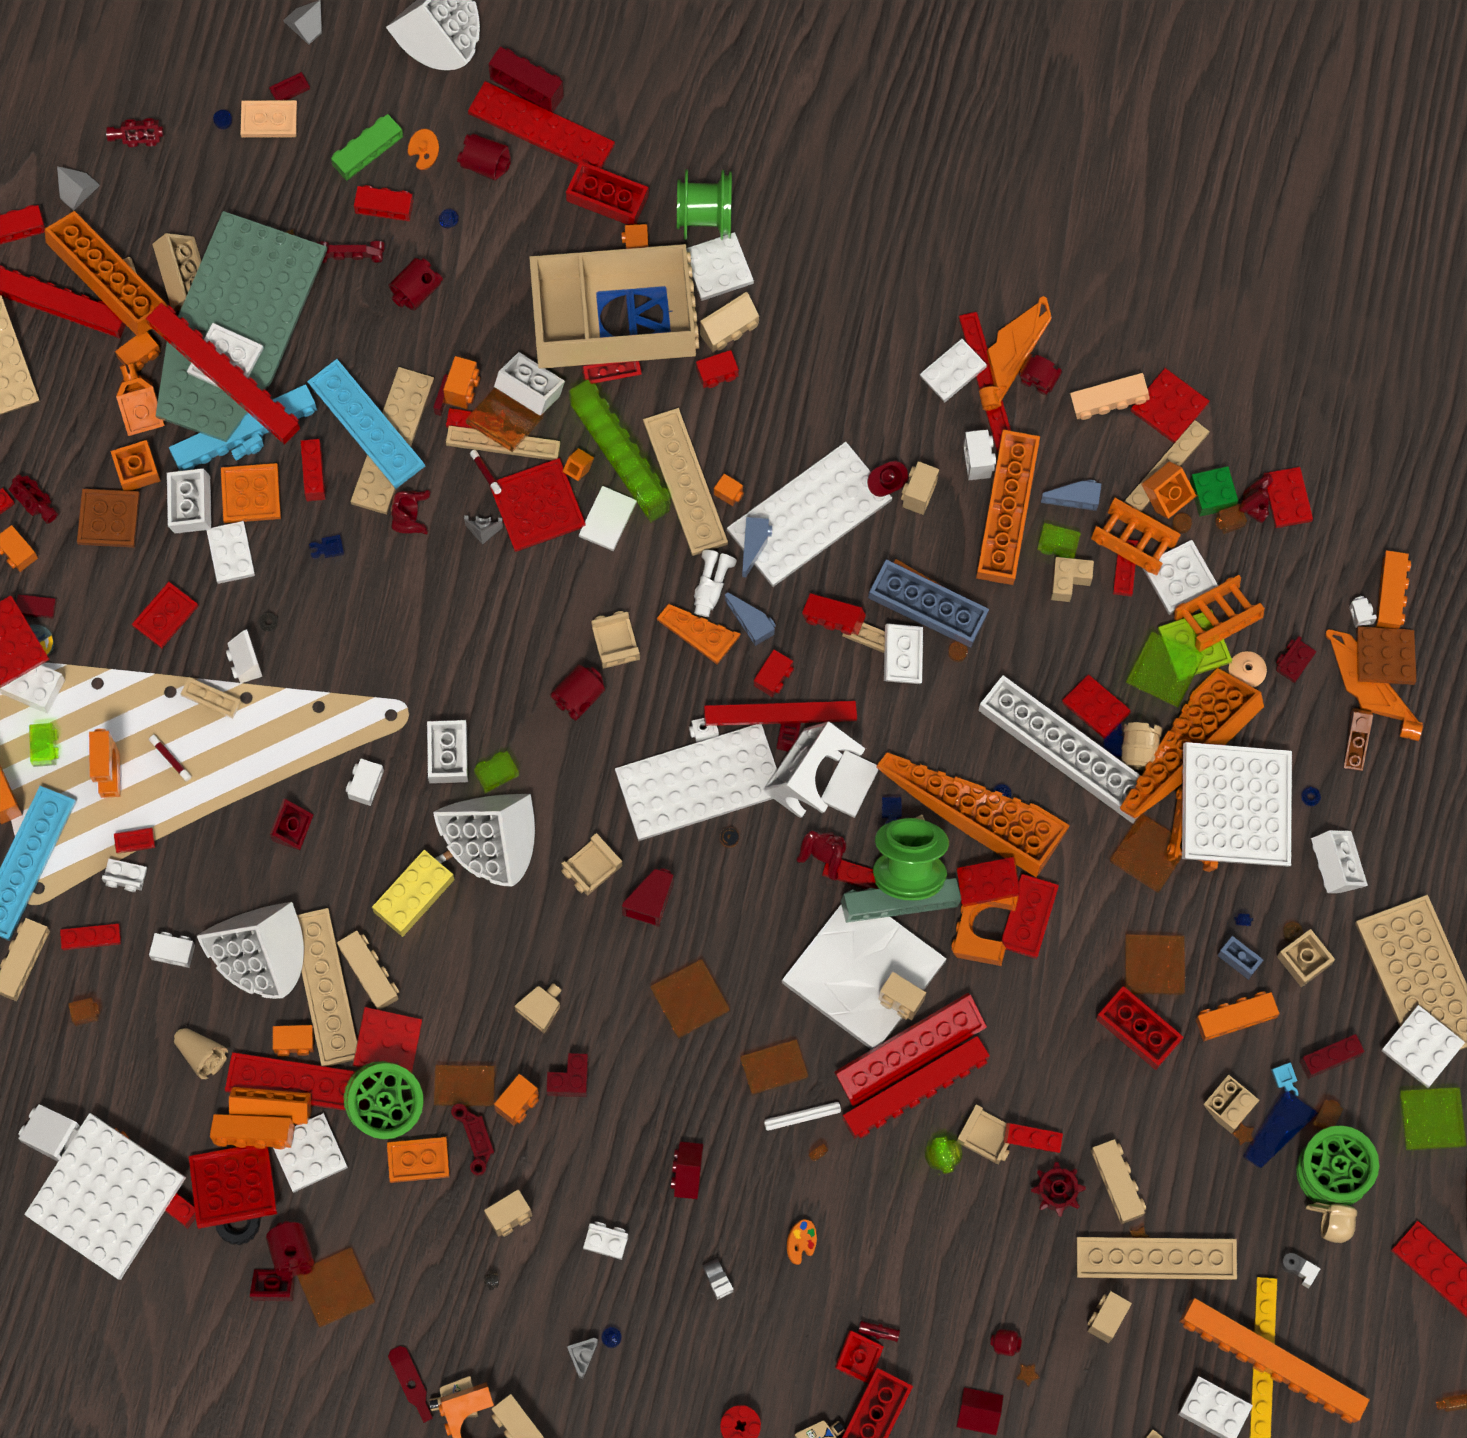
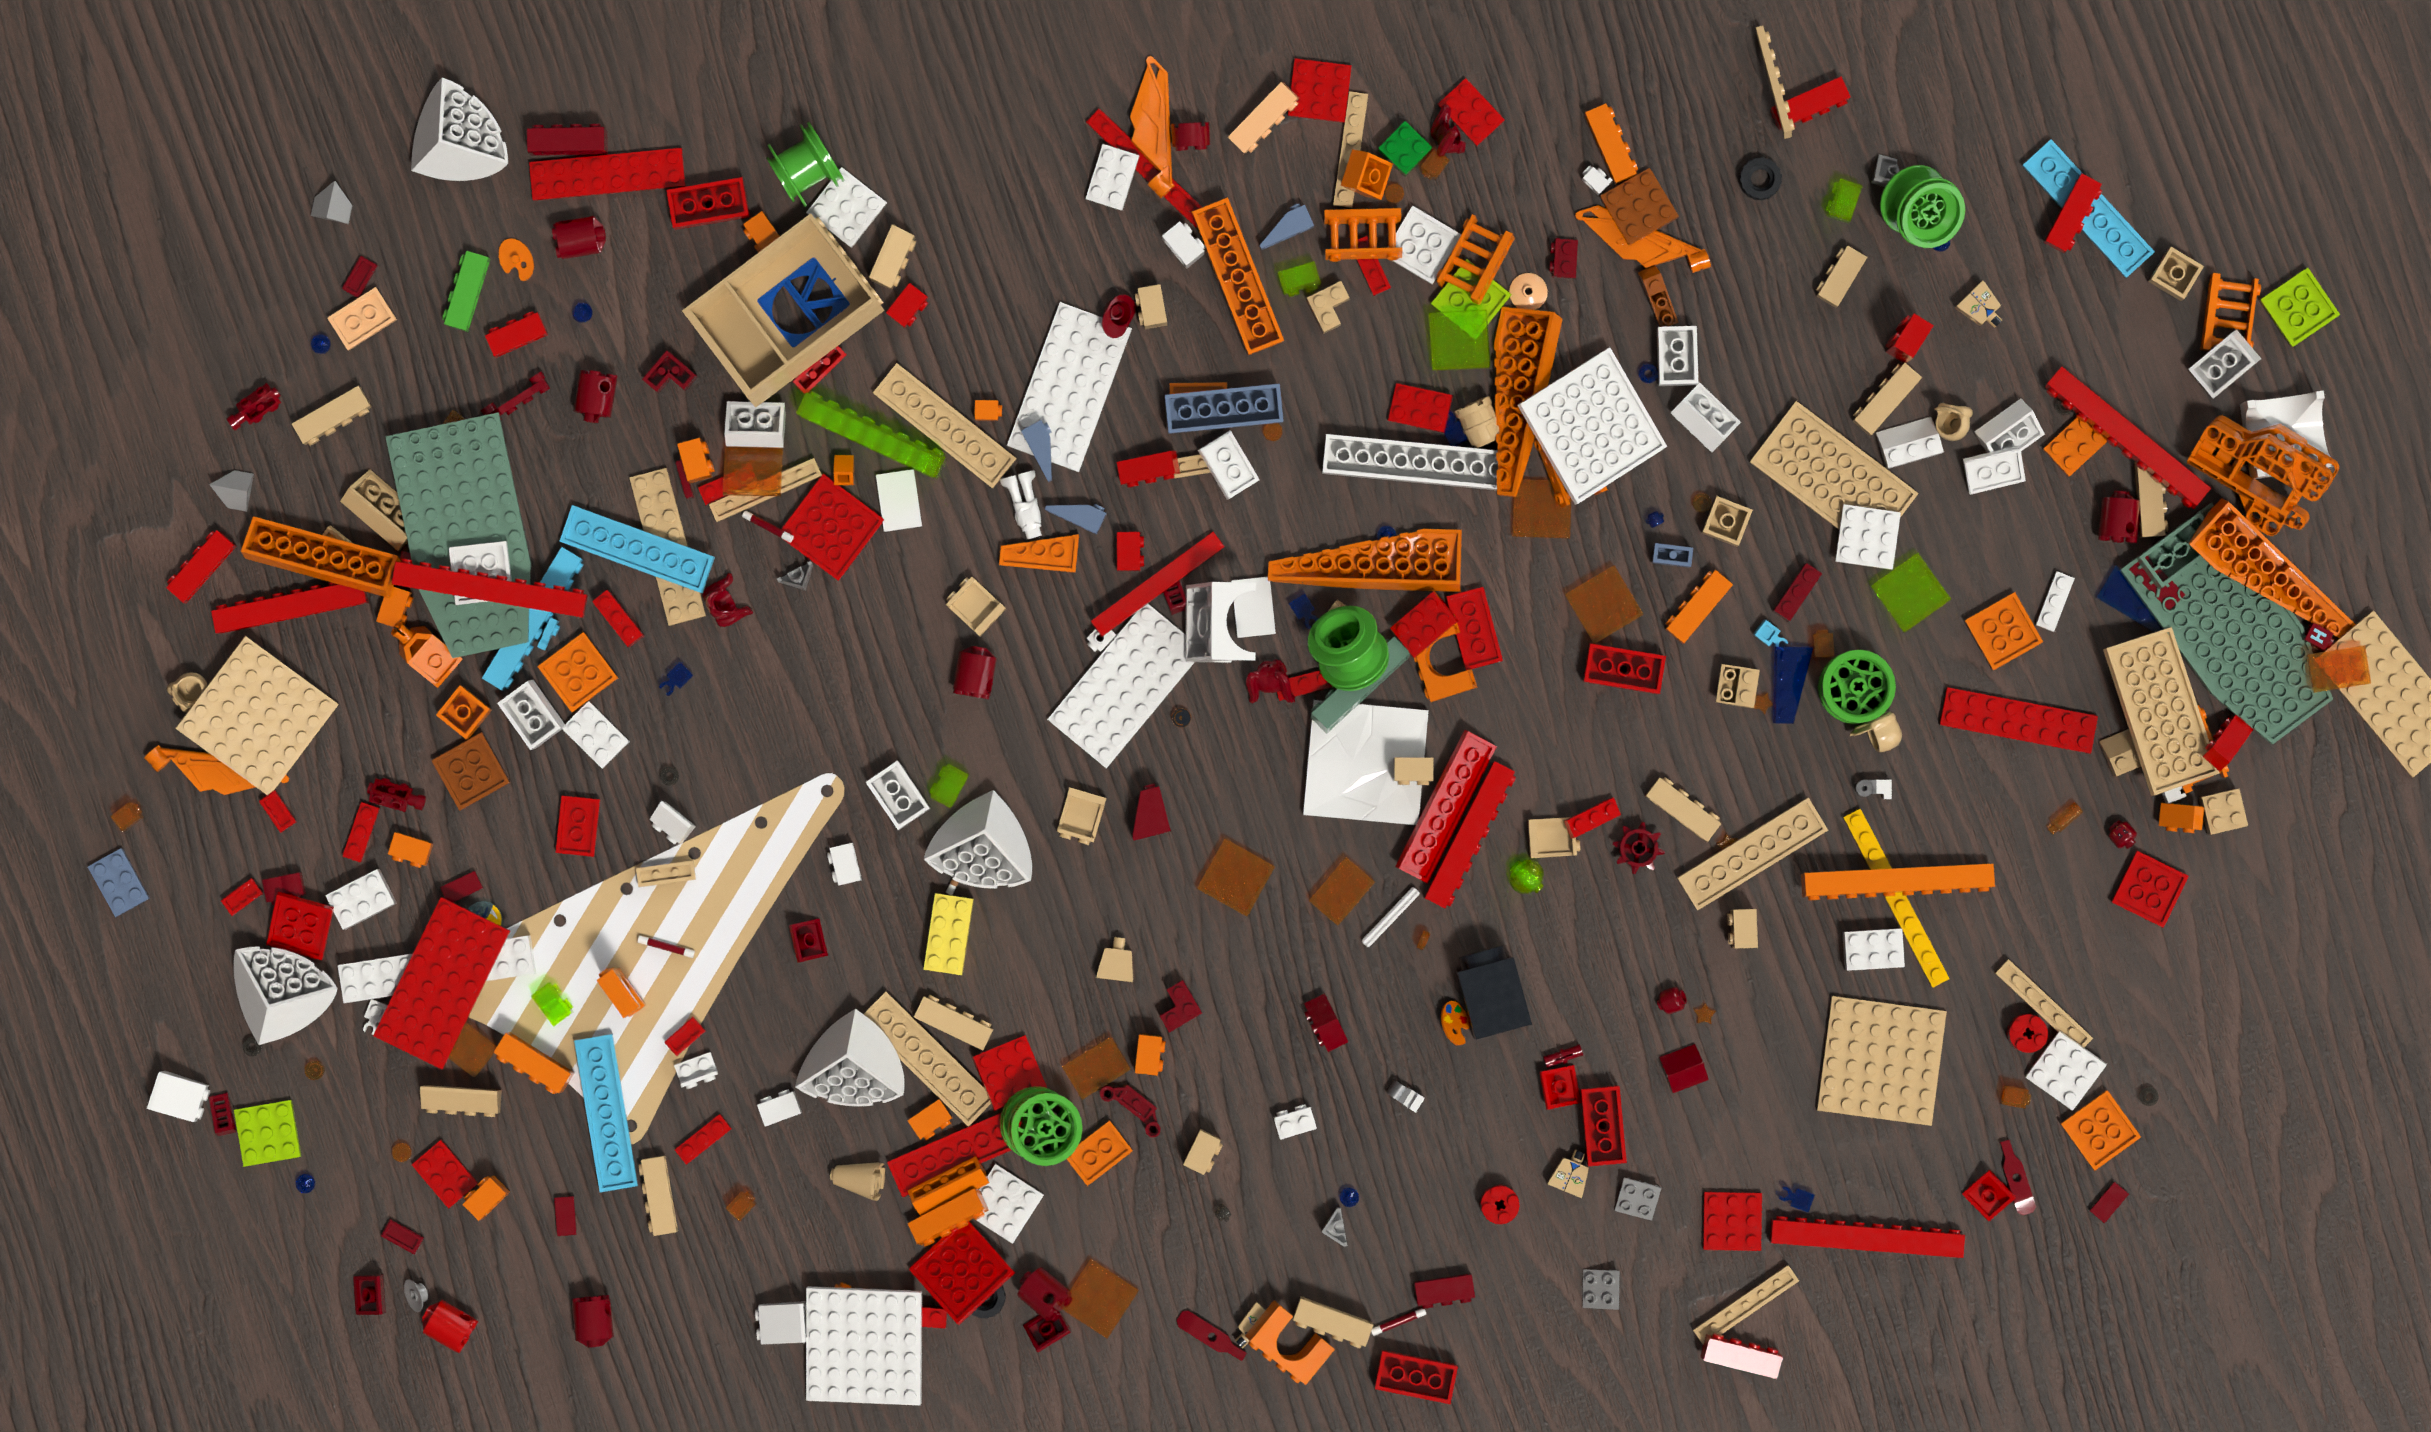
camera: 30 degrees left, 15 degrees up
(192, 176) = (331, 415): none -> tan brick
(486, 300) = (668, 369): none -> dark red brick
(850, 1232) = (1492, 992): none -> black container
(1345, 794) = (1677, 356): none -> white brick

